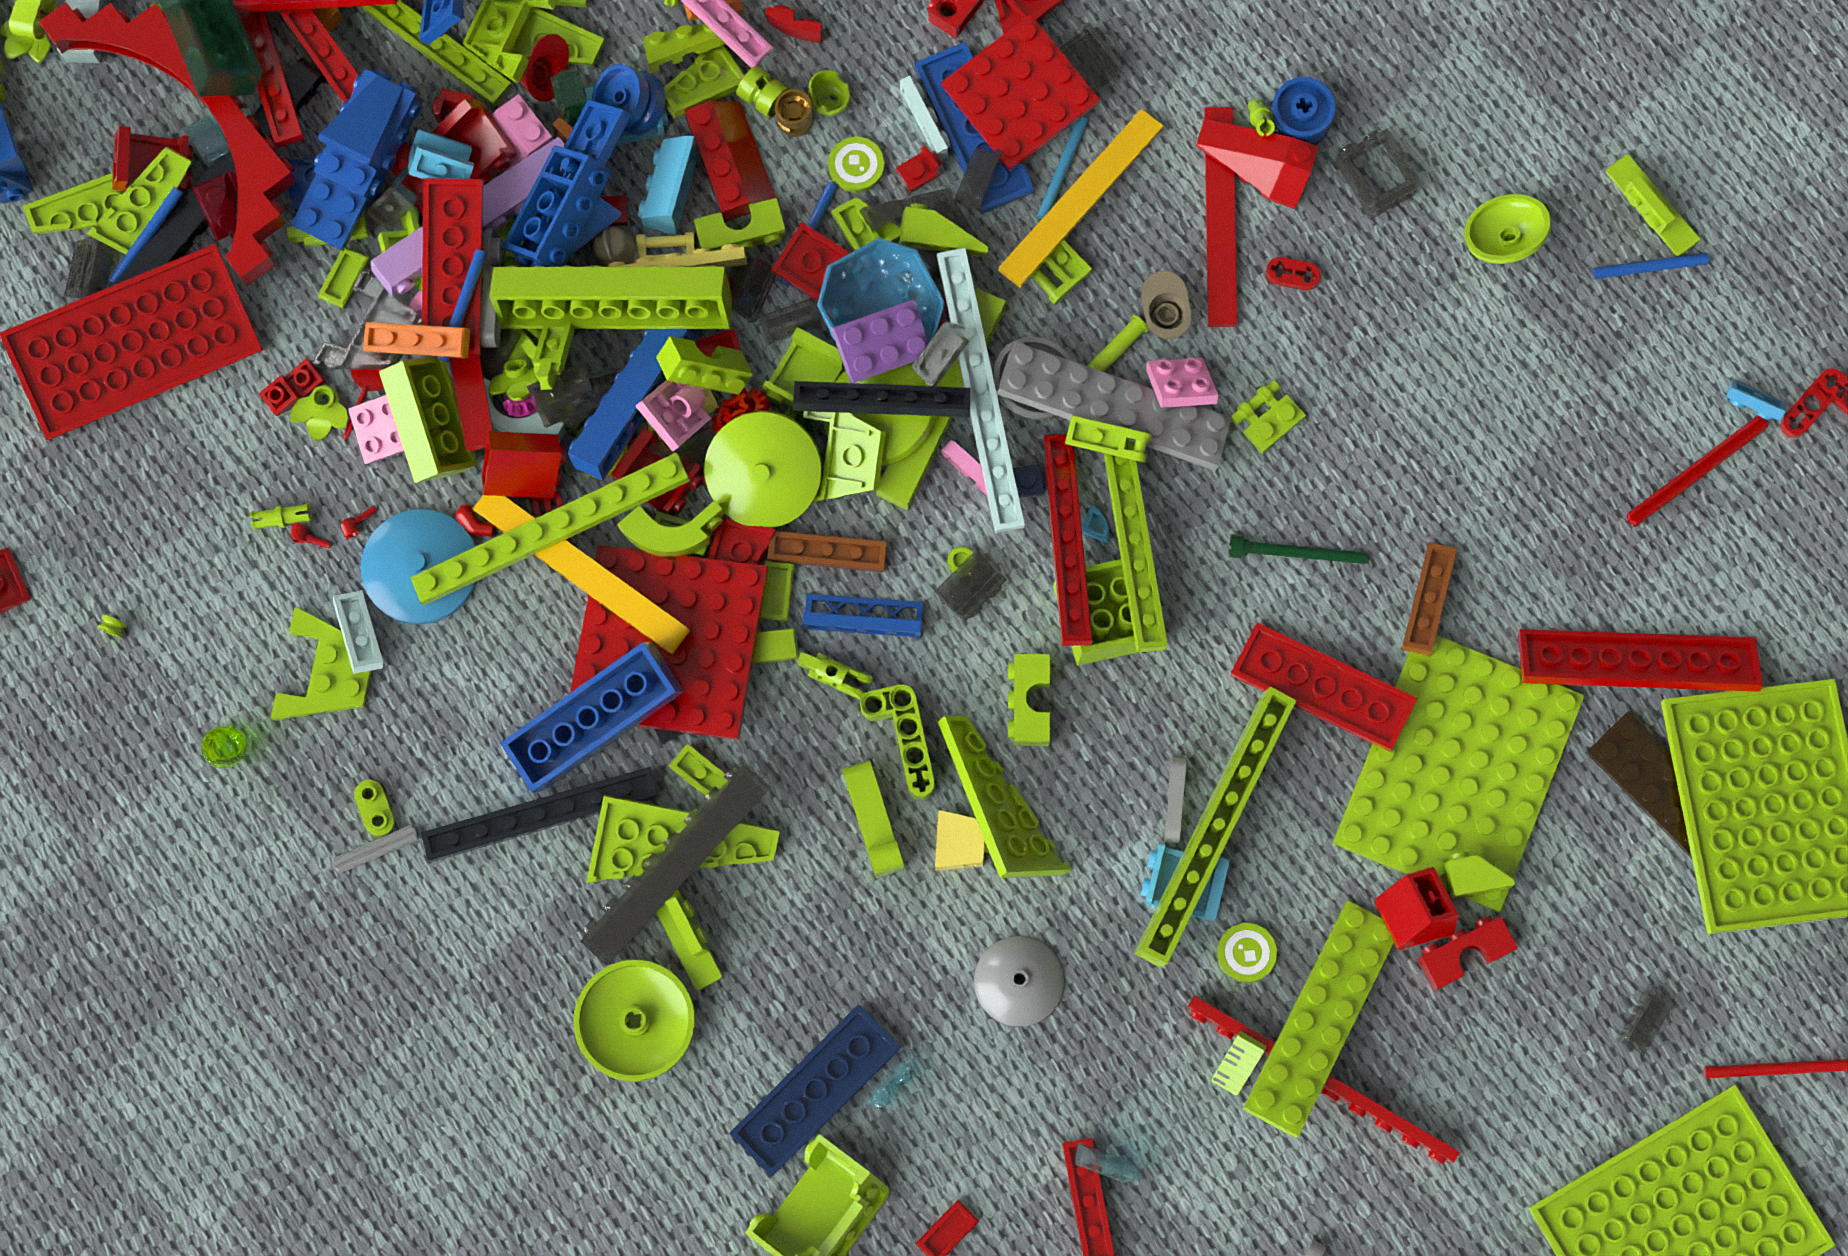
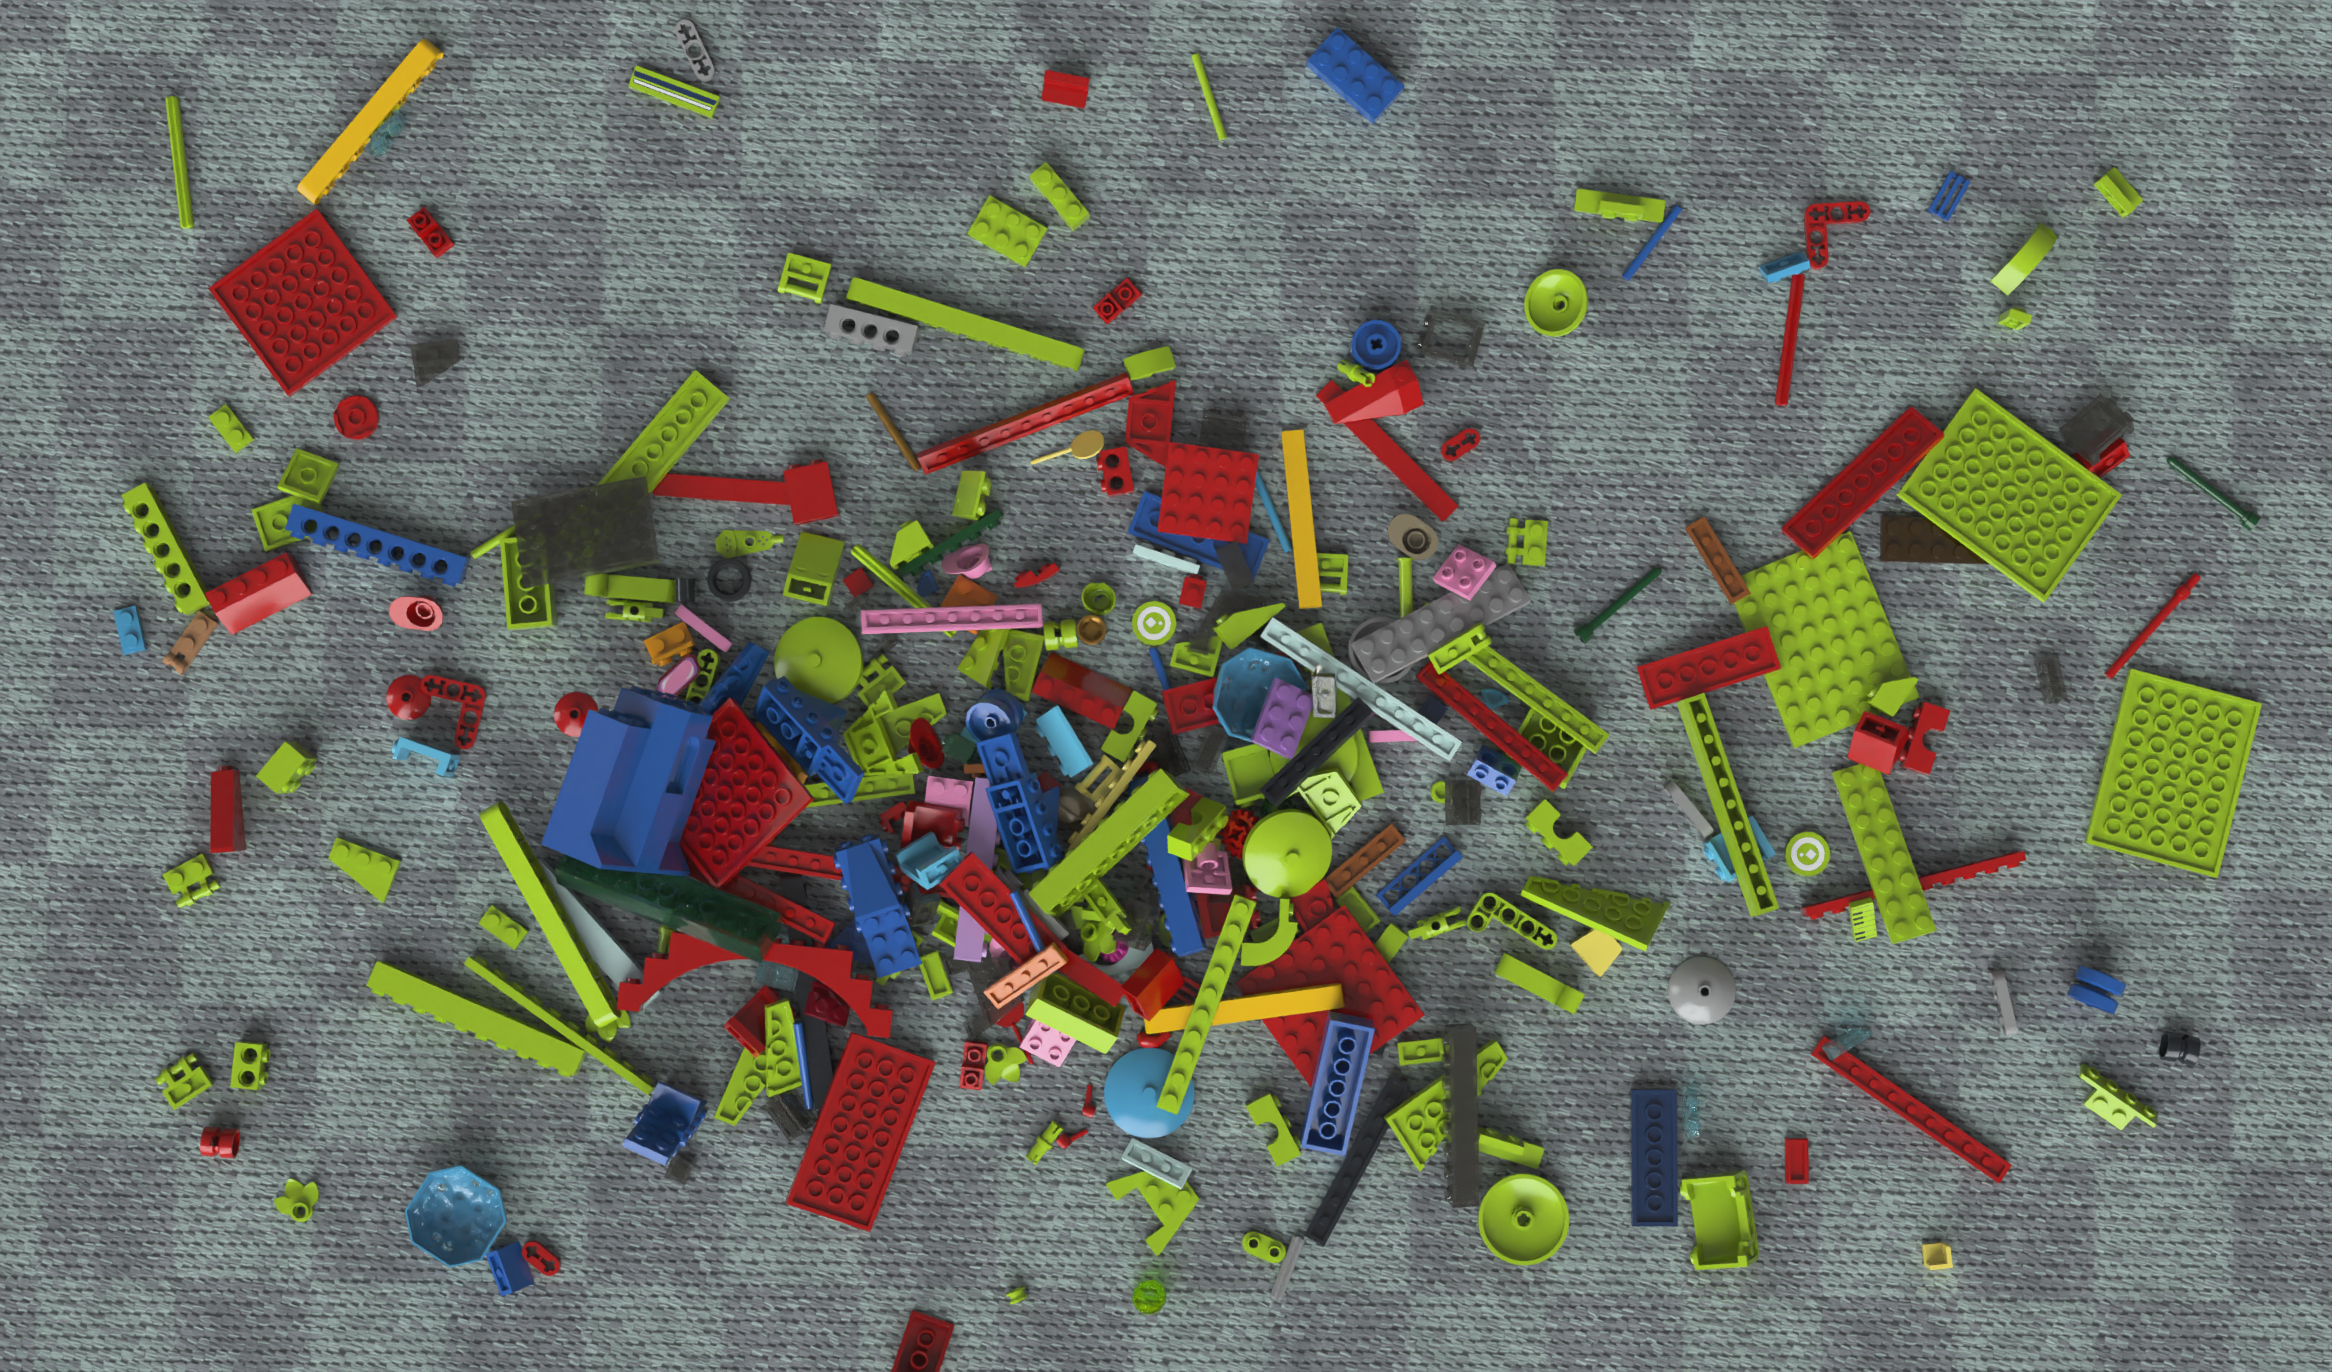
camera: 45 degrees left, 10 degrees up
(507, 684) = (1266, 1110): none -> lime arch
(1029, 584) = (1494, 770): none -> blue brick

